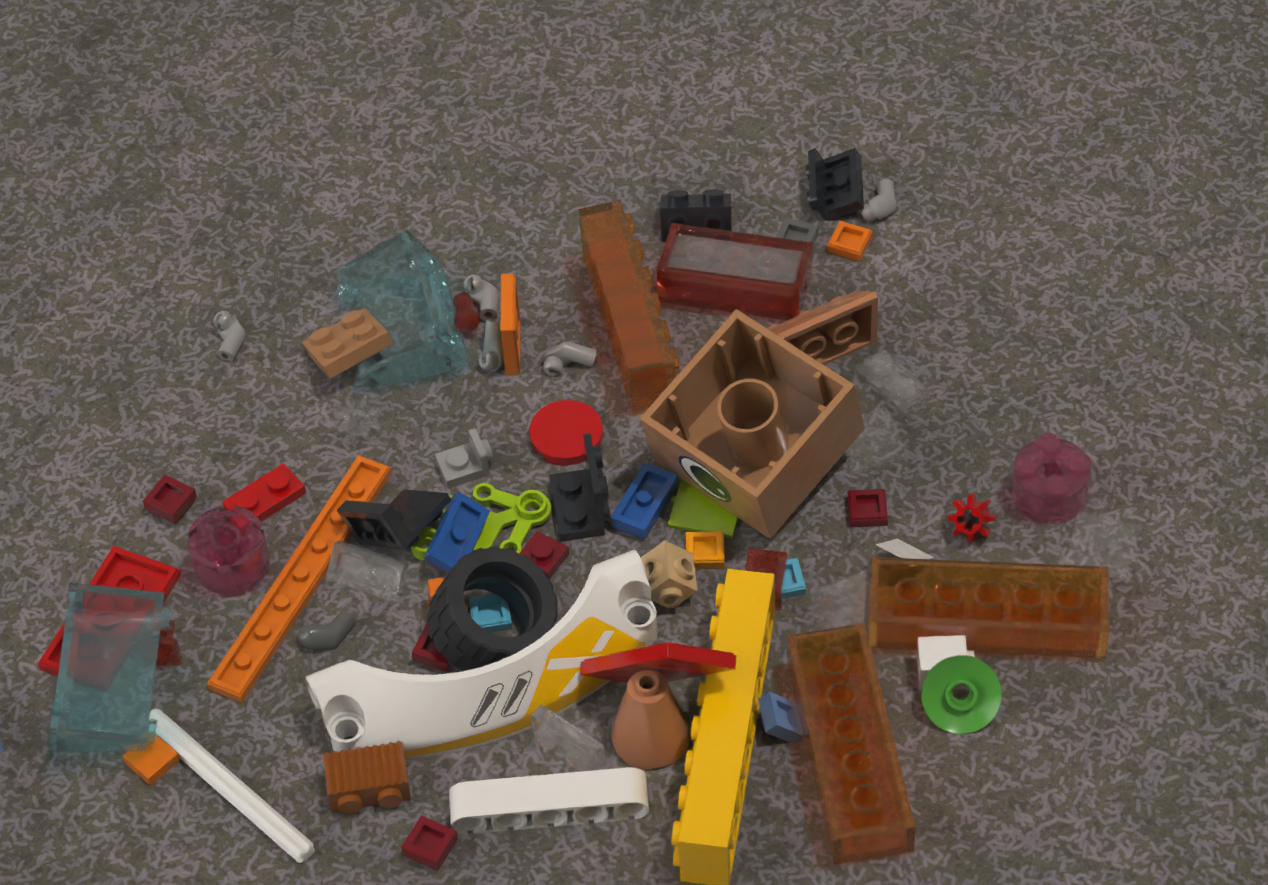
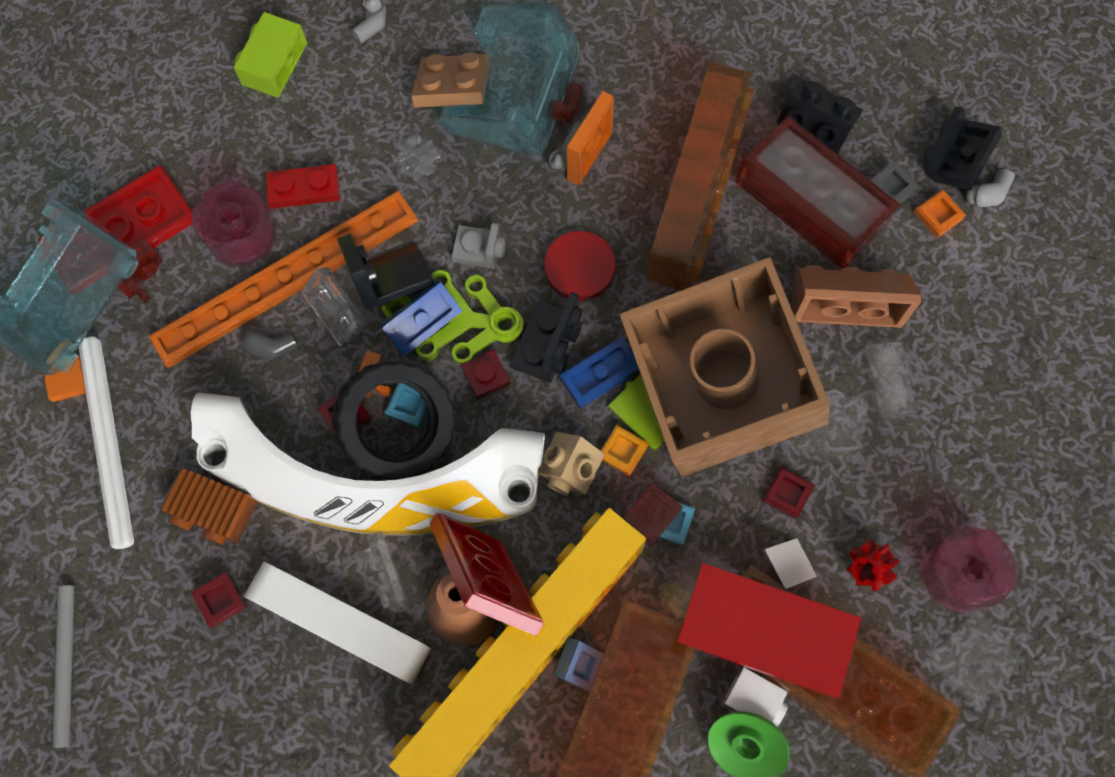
camera: 30 degrees right, 20 degrees up
(155, 406) = (270, 54): none -> lime brick
(169, 499) = (228, 146): dark red plate -> none
(484, 295) = (593, 87): light grey arm -> none
(565, 353) = (625, 189): light grey arm -> none
(918, 590) = (769, 630): none -> red tile

